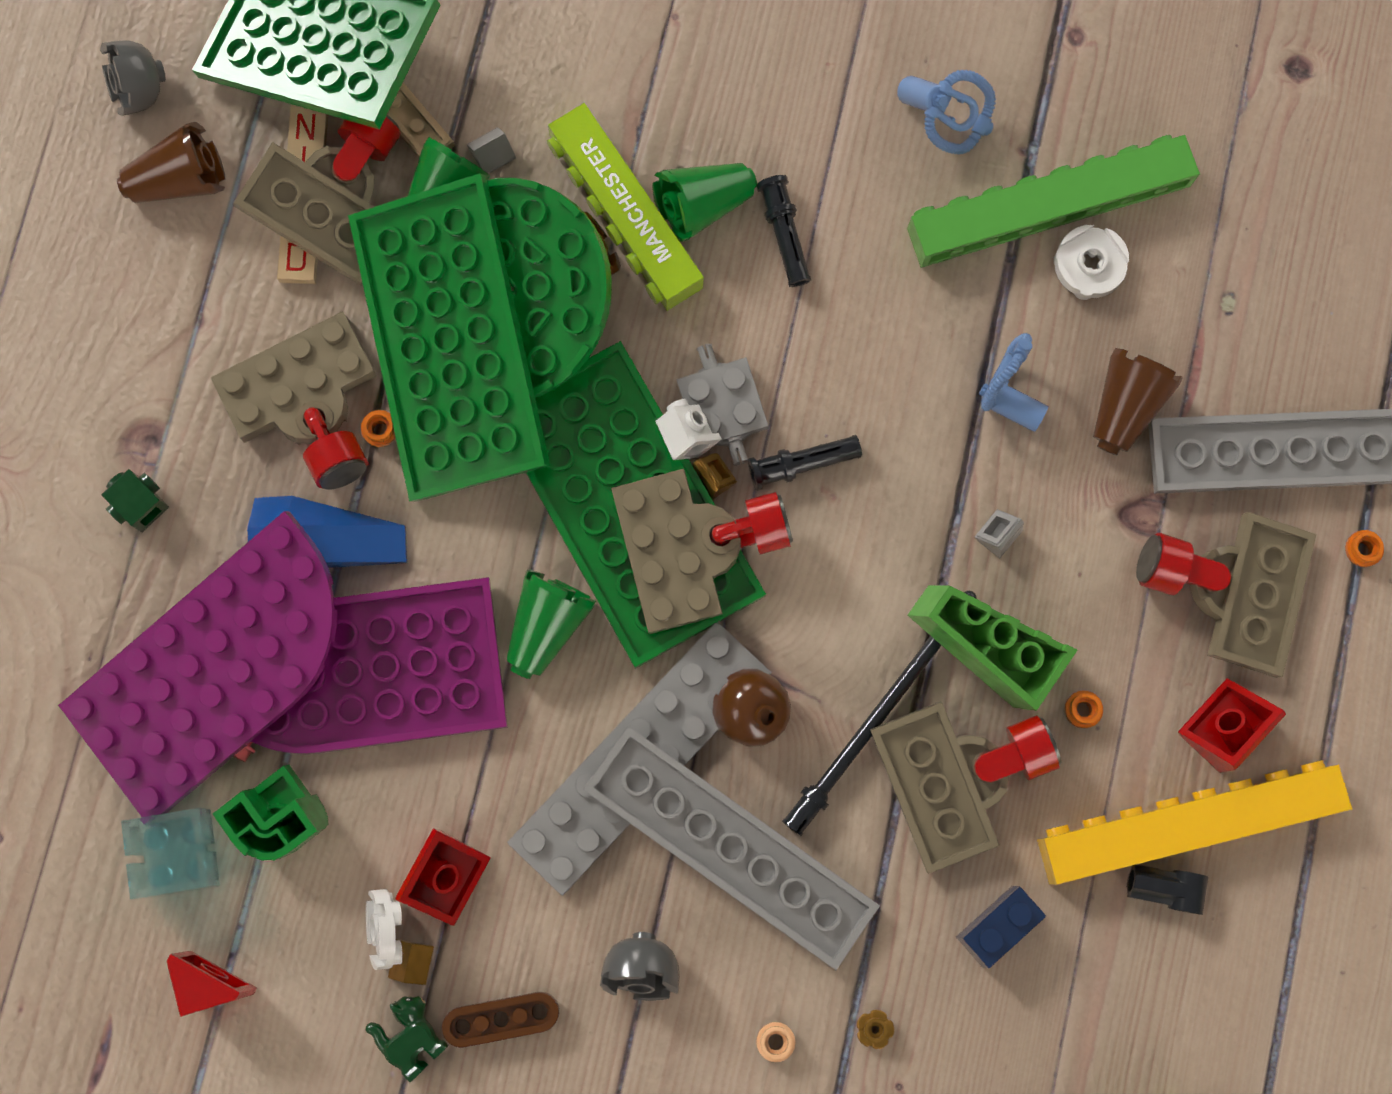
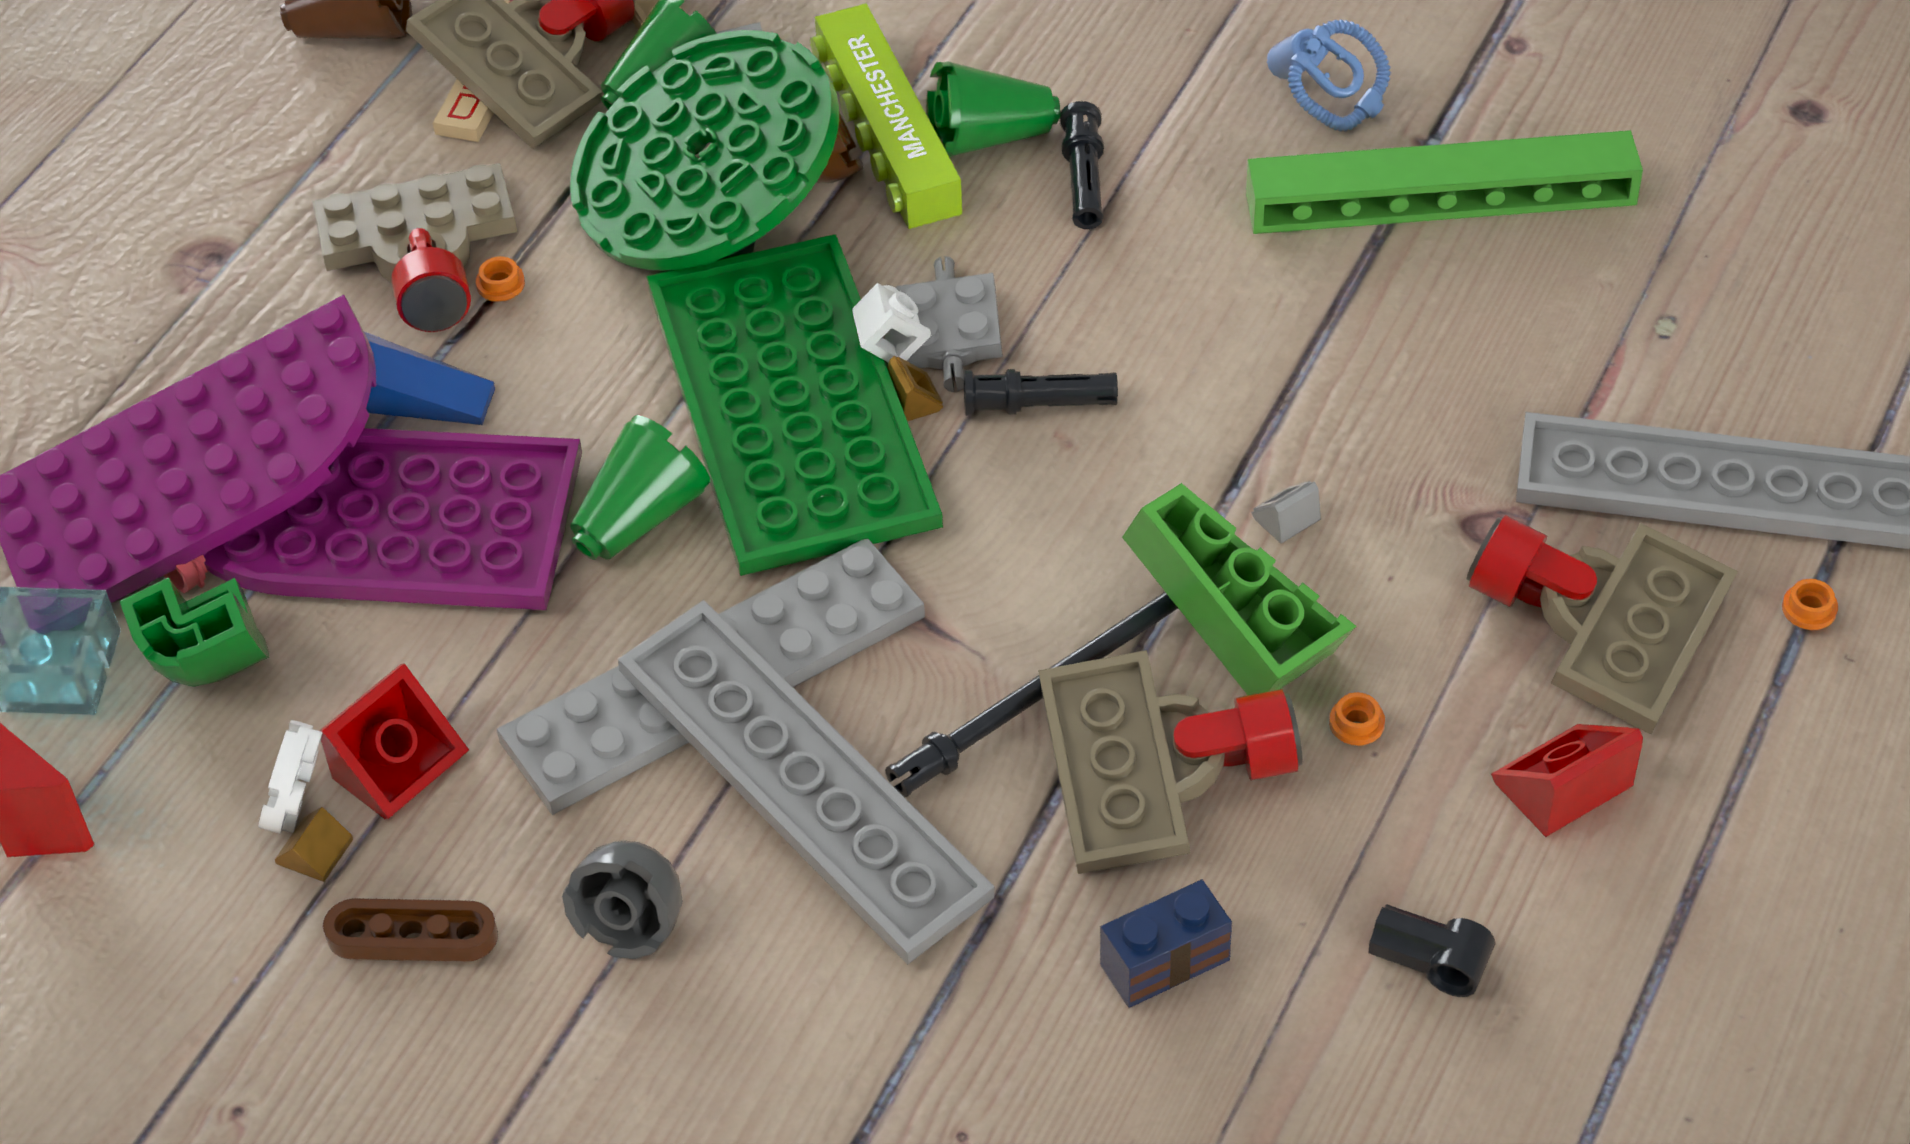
camera: 20 degrees right, 30 degrees down
(134, 500) = (168, 299): dark green brick -> none
(417, 1036) = (276, 930): dark green animal -> none
(448, 339) = (615, 190): green plate -> none
(685, 545) = (841, 436): dark tan plate -> none
(752, 708) = (882, 628): reddish brown cylinder -> none
(781, 1053) = (793, 1020): light nougat plate -> none
(867, 1037) = (945, 1060): pearl gold plate -> none
(1007, 400) = (1323, 362): medium blue piece -> none
(1097, 242) = (1478, 271): white plate -> none
(1131, 399) = (1502, 379): reddish brown cone -> none
(1194, 823) = (1490, 873): yellow brick -> none

